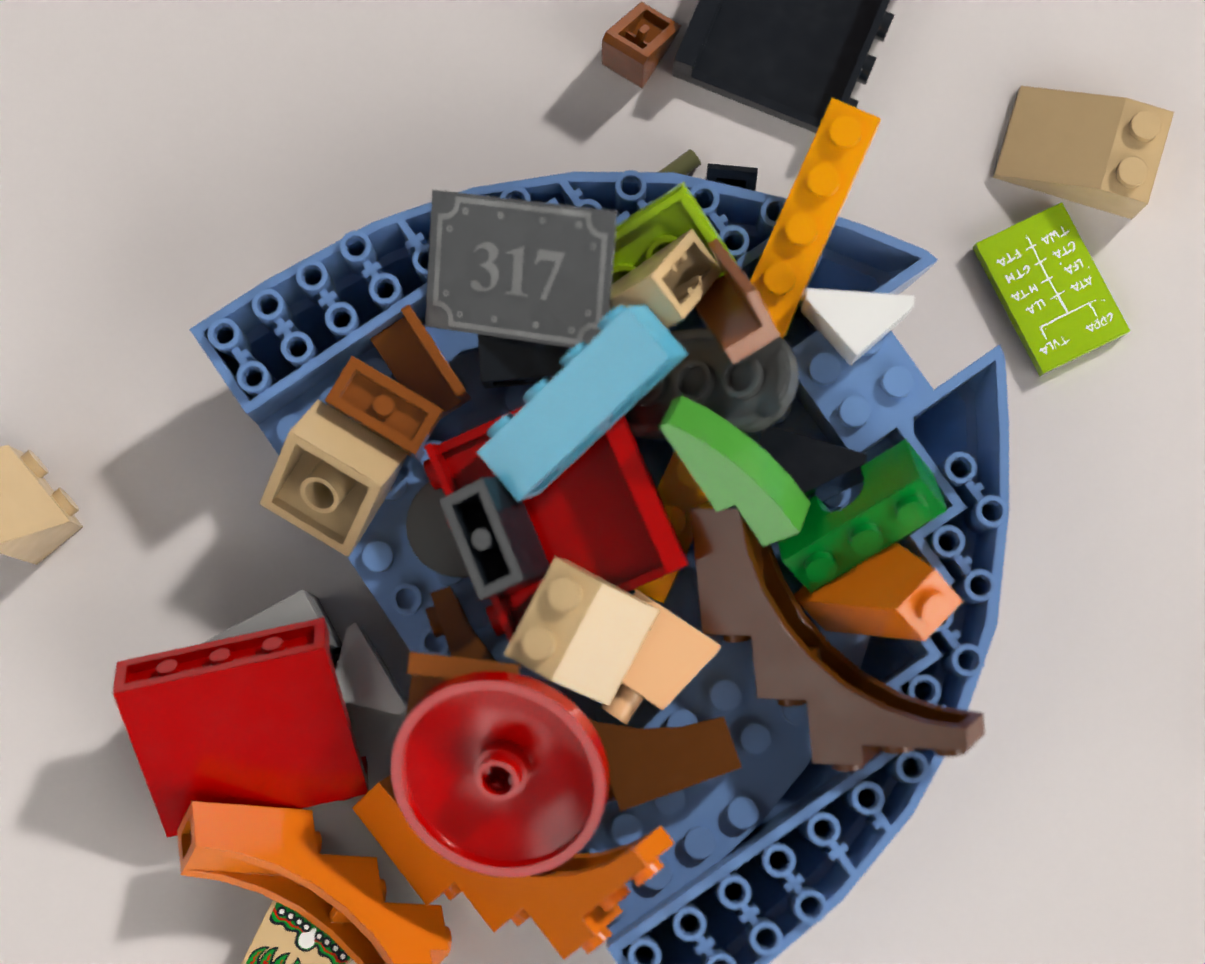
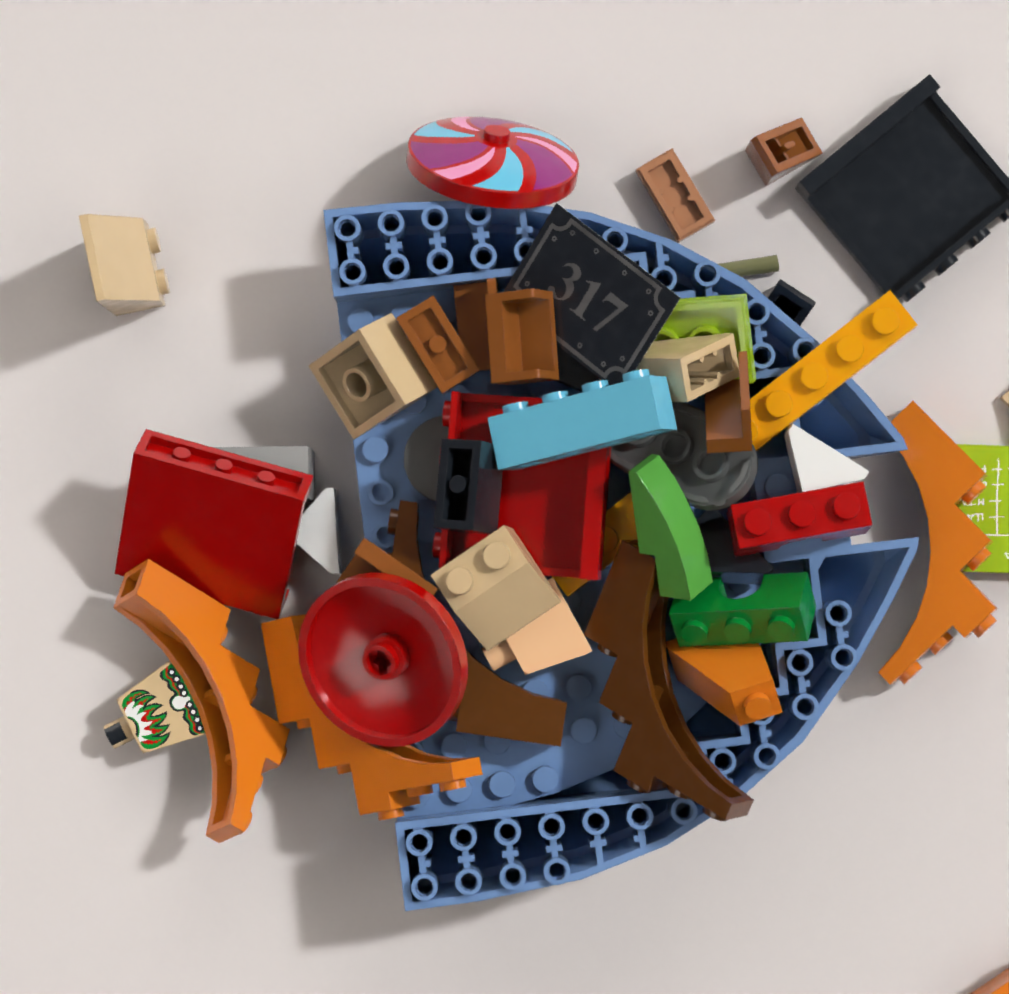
camera: 30 degrees right, 5 degrees up
(346, 195) = (492, 162): none -> dish
(469, 348) = (522, 337): none -> dark orange panel
(553, 139) = (675, 195): none -> nougat plate
(851, 394) = (799, 516): none -> red arch
(1060, 400) = (956, 542): none -> orange arch

